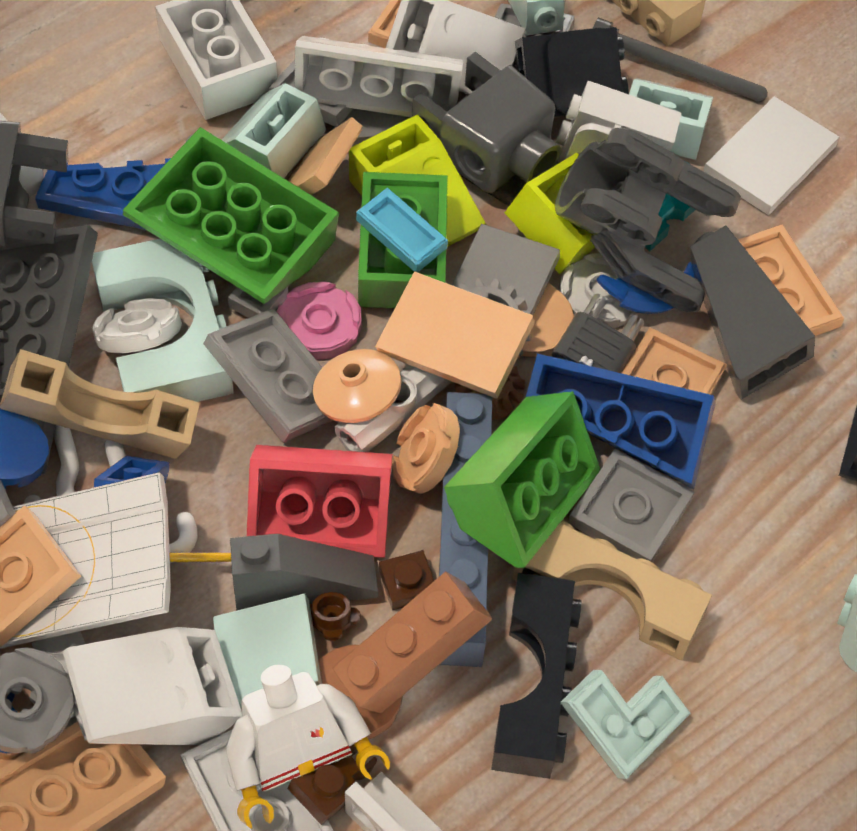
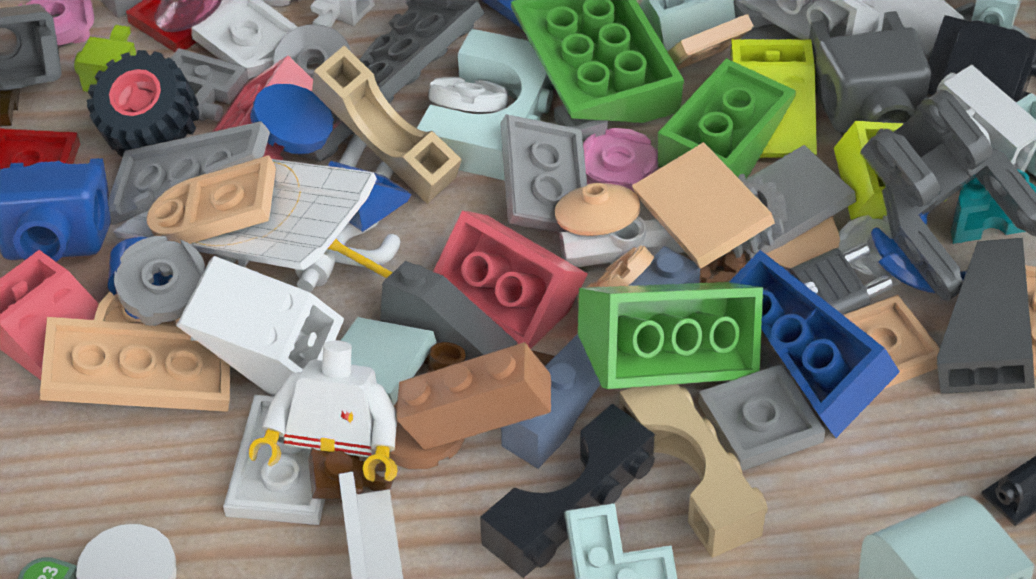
camera: 40 degrees right, 10 degrees down
(401, 230) = (721, 111): medium azure tile -> none

